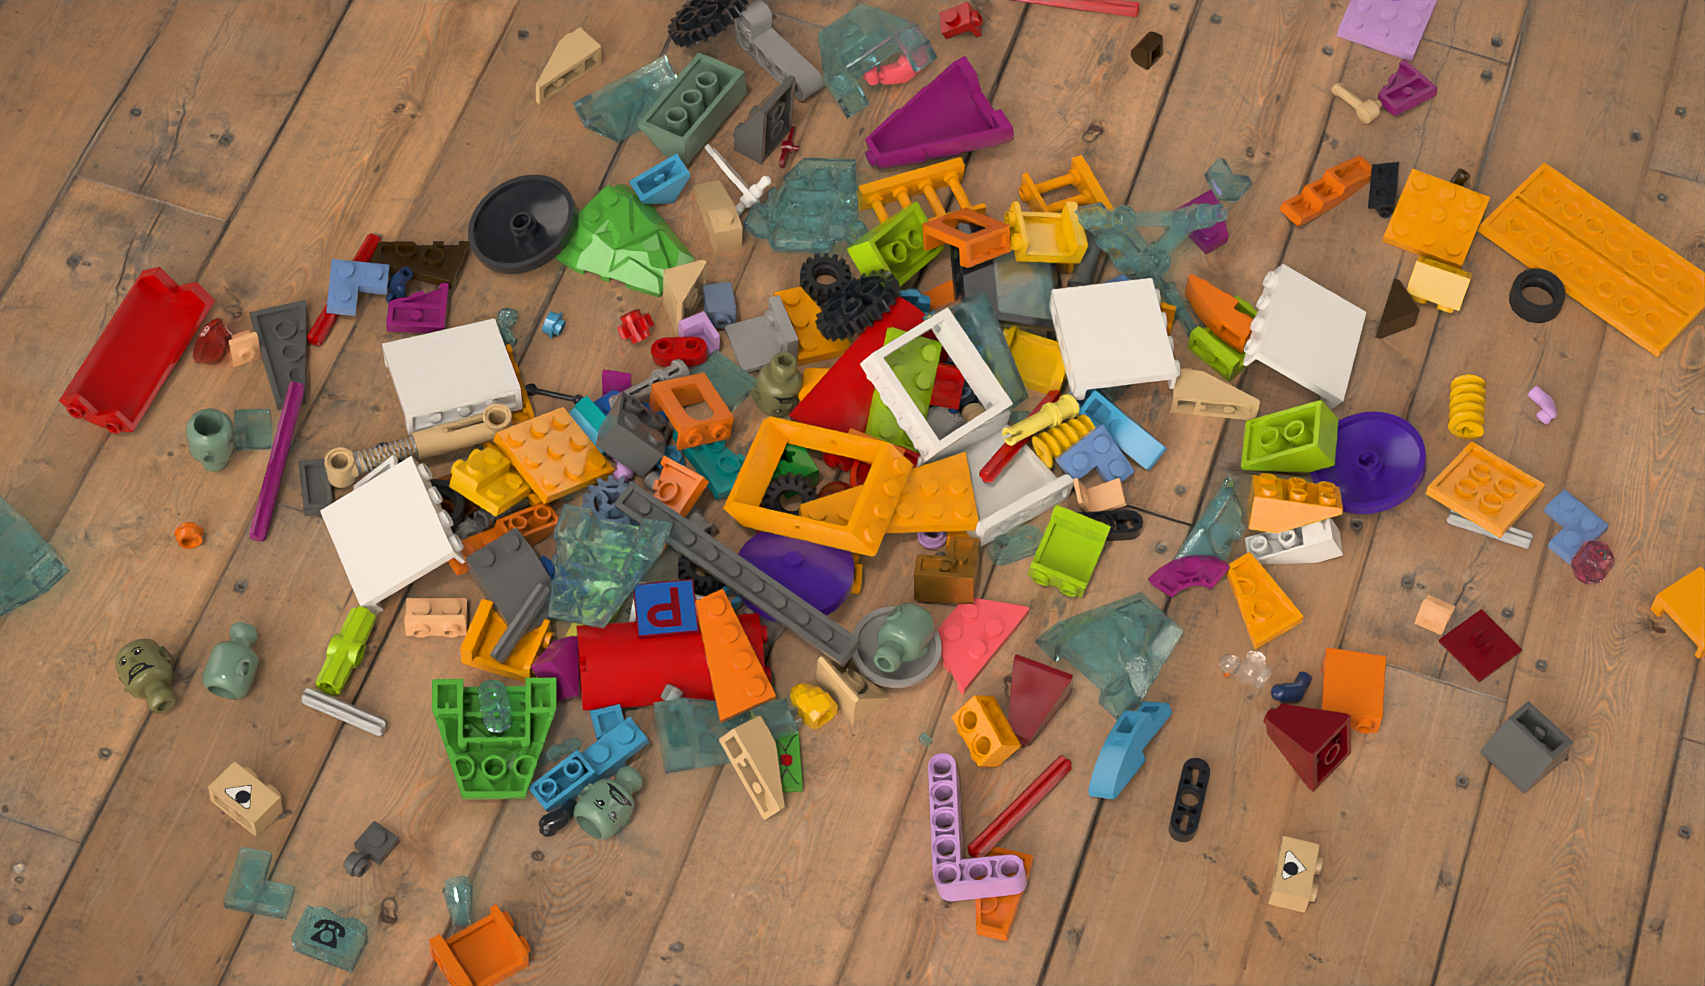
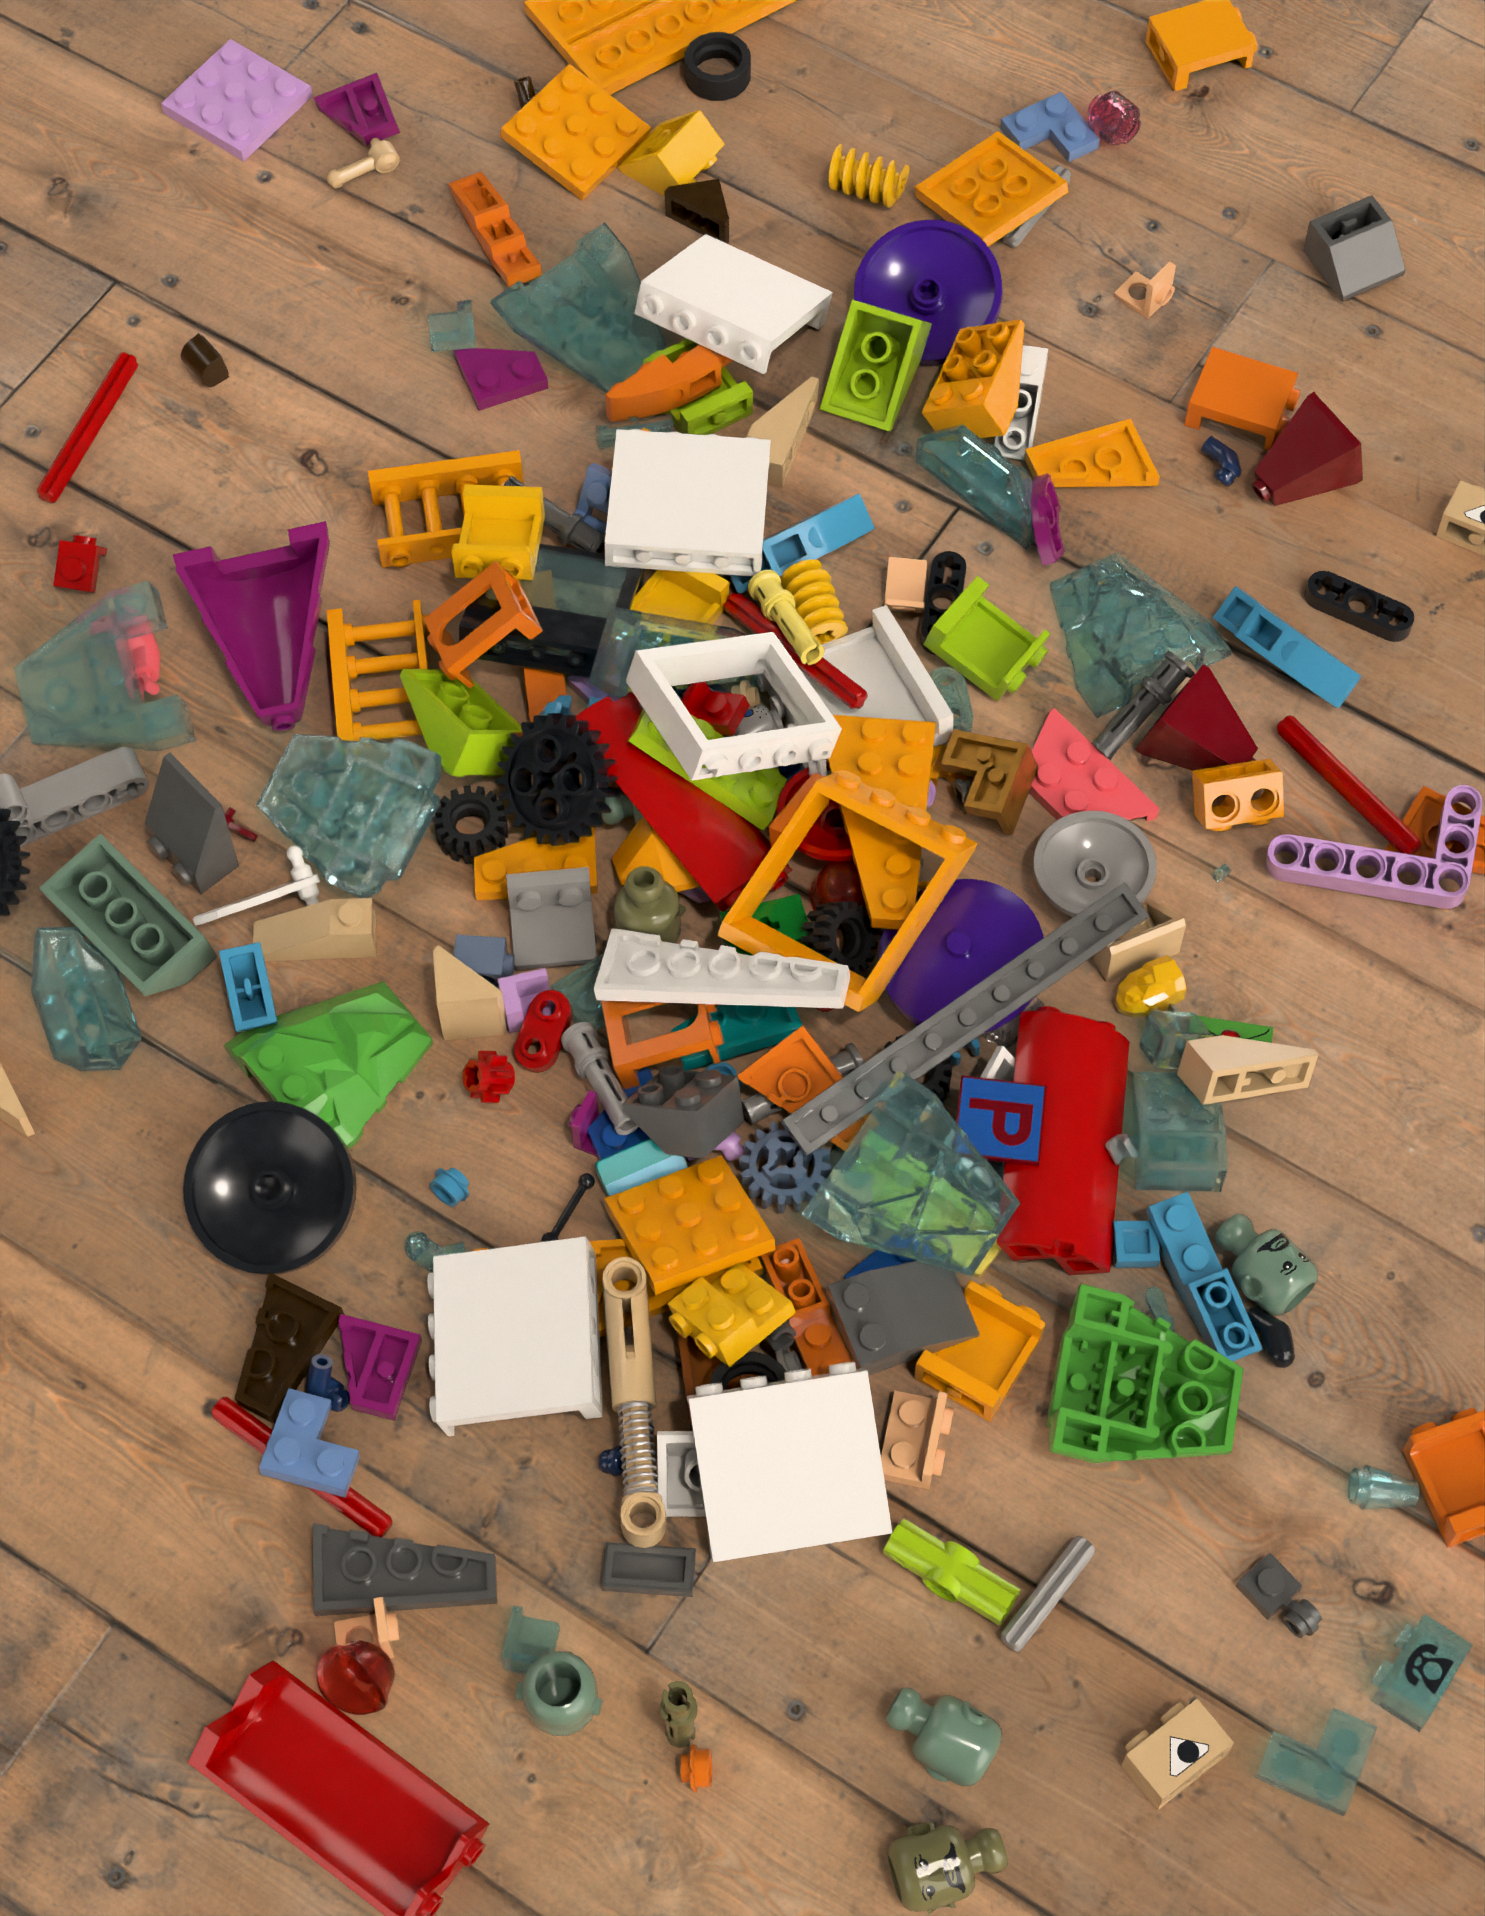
camera: 70 degrees left, 5 degrees up
(208, 497) = (678, 1712): none -> olive pin
(277, 461) = (600, 1613): magenta axle -> none
(500, 705) = (1102, 1376): clear light blue beam -> none
(520, 623) = (969, 1318): dark grey axle -> none
(560, 662) = (1042, 1282): magenta slope -> none
(728, 410) = (650, 970): none -> white wing
(734, 668) = (1096, 1056): orange wing -> none
(903, 636) = (1100, 844): sand green piece -> none
(1052, 657) = (1154, 691): none -> dark grey pin
(1095, 451) = (849, 572): medium blue plate -> none
(1127, 248) = (551, 437): clear light blue plate -> none
(1250, 671) = (1192, 495): clear animal -> none
(1262, 242) = (586, 312): none -> clear light blue wedge
(1383, 188) = (513, 168): black hinge -> none
(1480, 645) = (1199, 261): dark red piece -> none
(1545, 402) = (873, 102): lavender arm -> none

